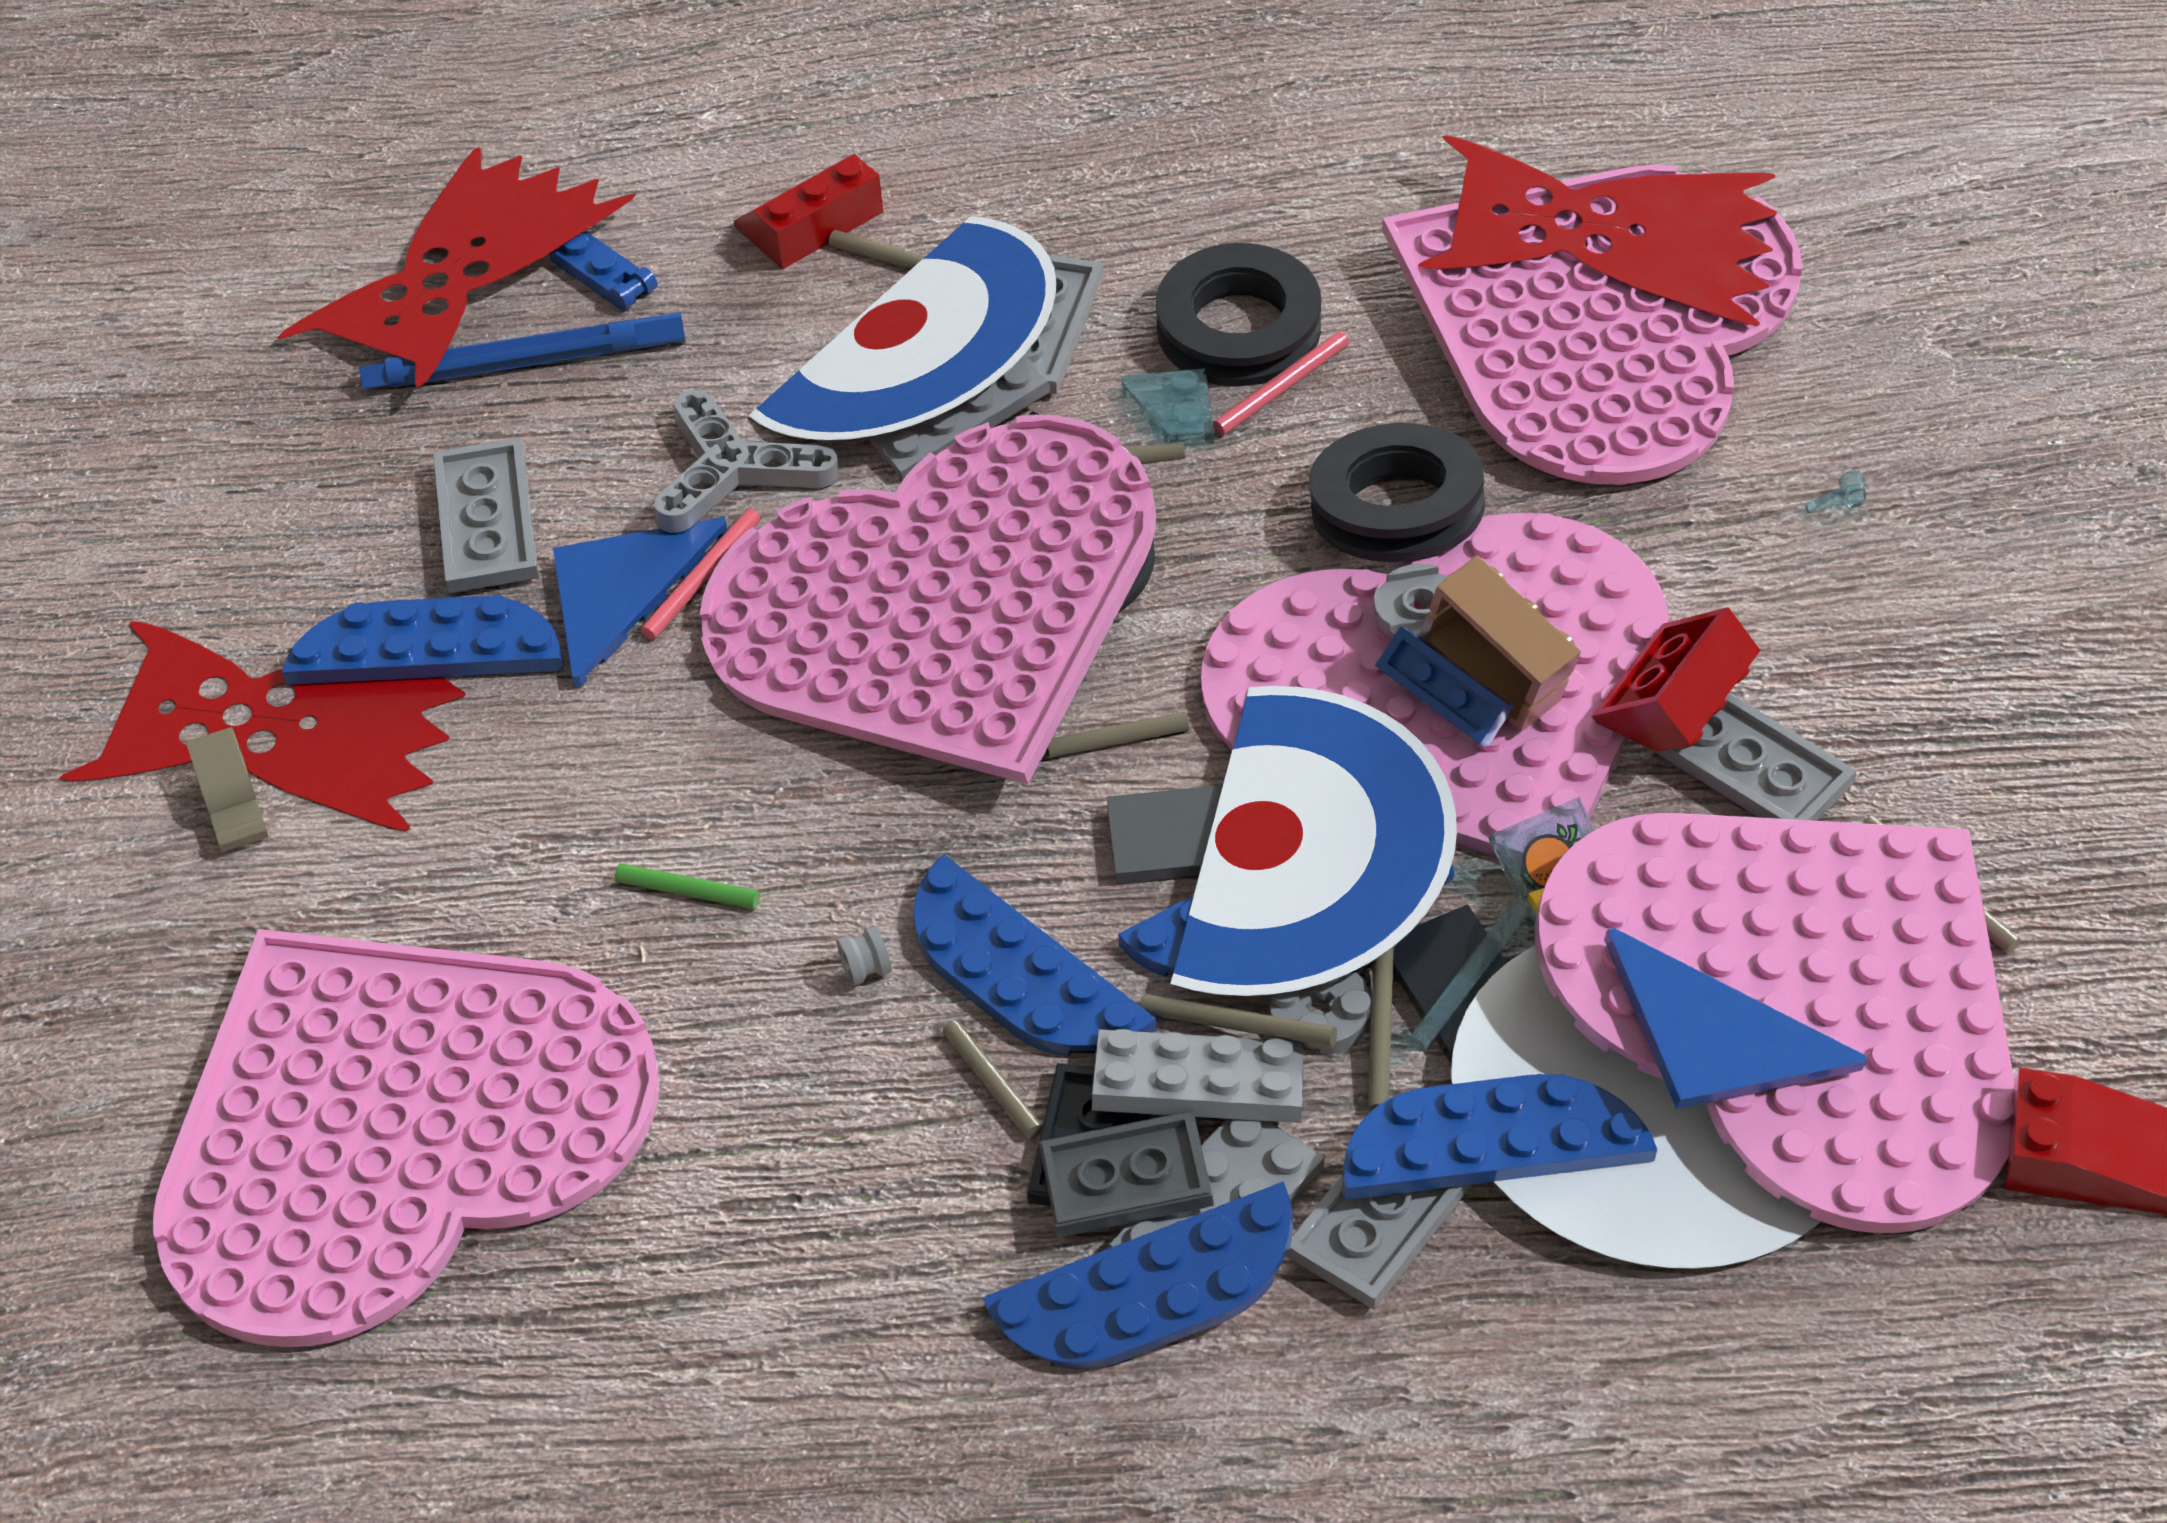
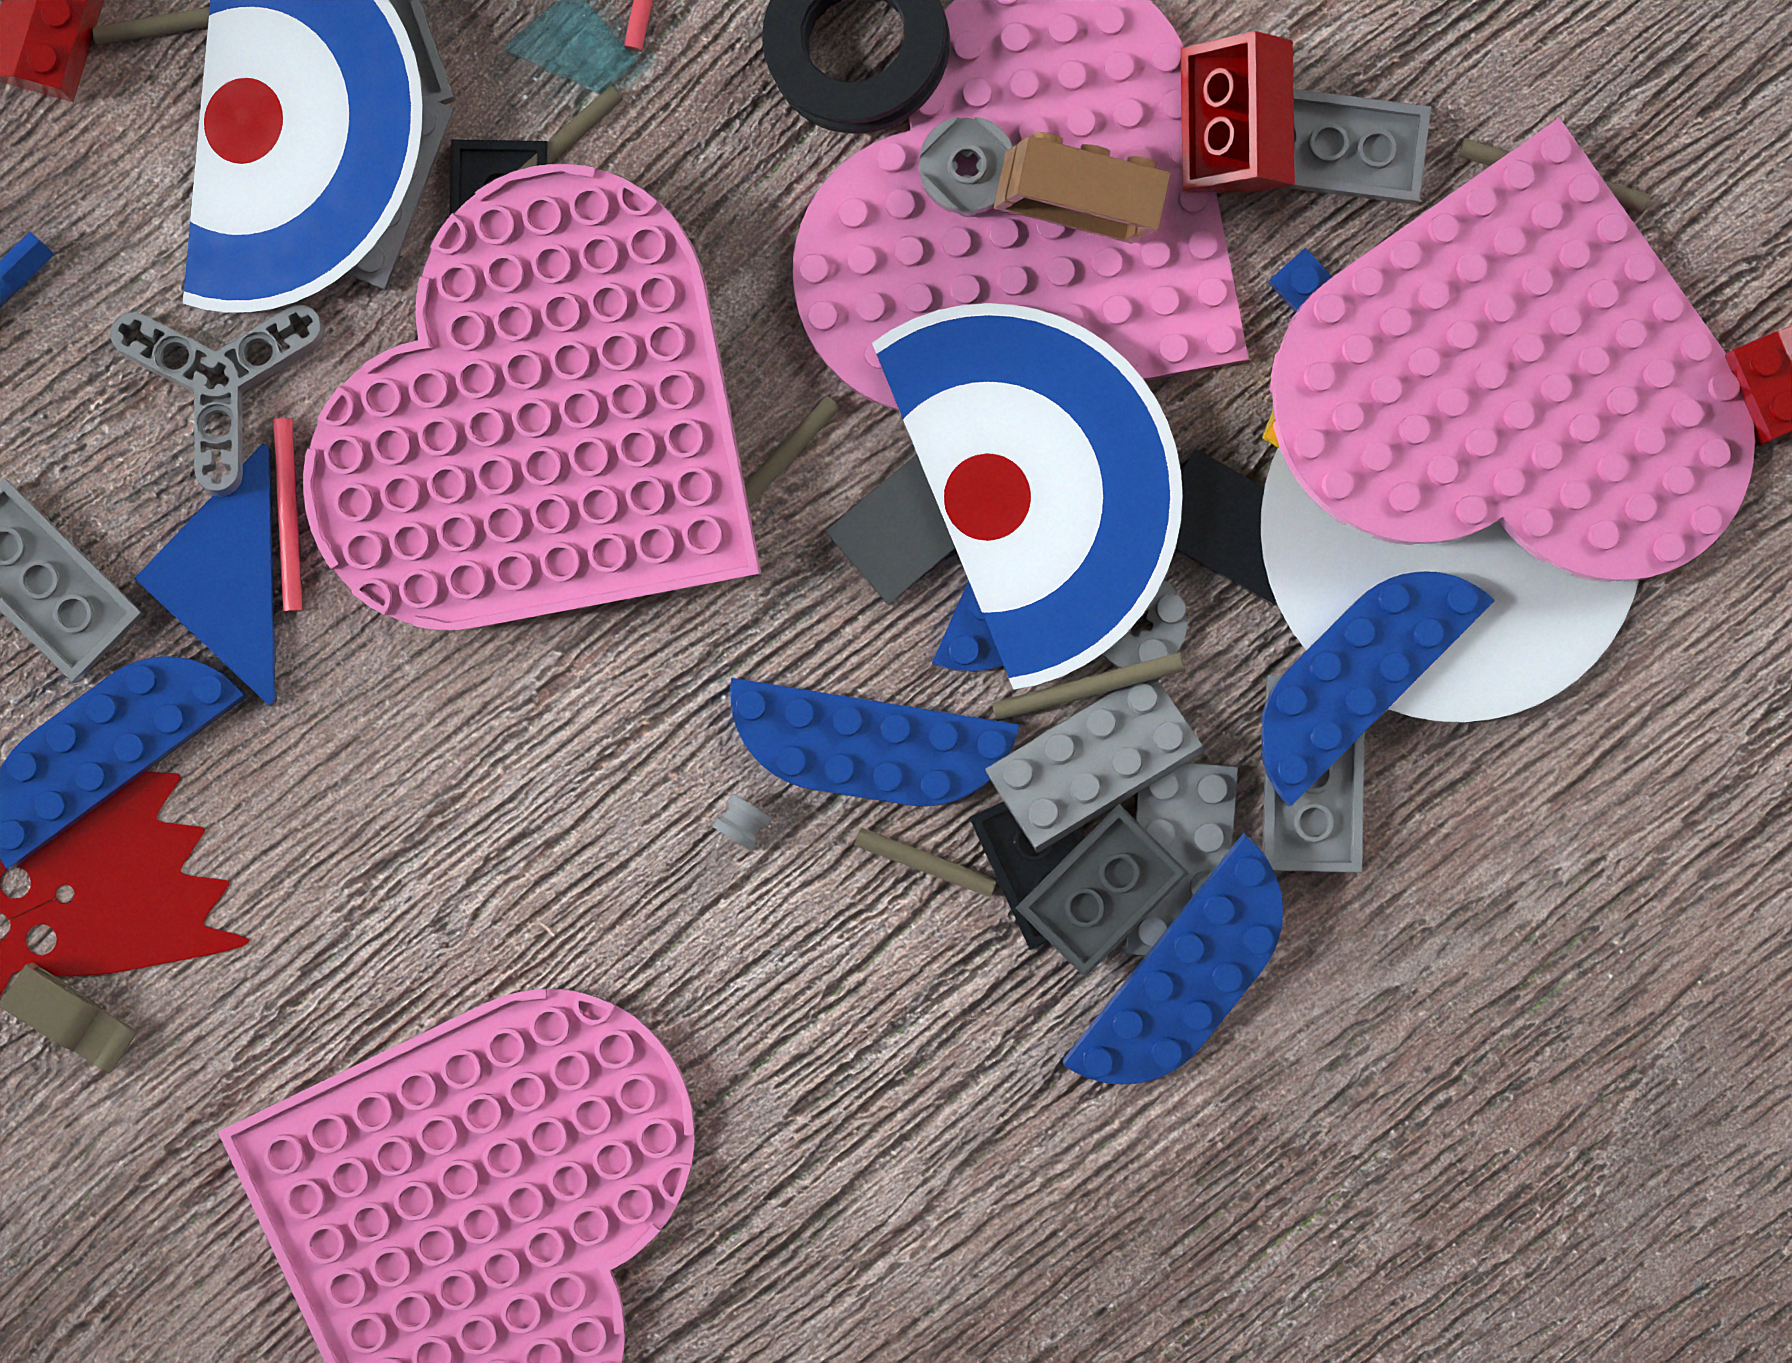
camera: 35 degrees left, 35 degrees up
(687, 886) = (536, 844): bright green bar -> none
(1380, 1029) = (1208, 625): dark tan bar -> none
(1444, 686) = (1046, 246): blue plate -> none
(1469, 975) = (1244, 521): clear light blue bar -> none
(1536, 845) = (1237, 365): clear light blue tile -> none
(1715, 1038) = (1494, 486): blue tile -> none

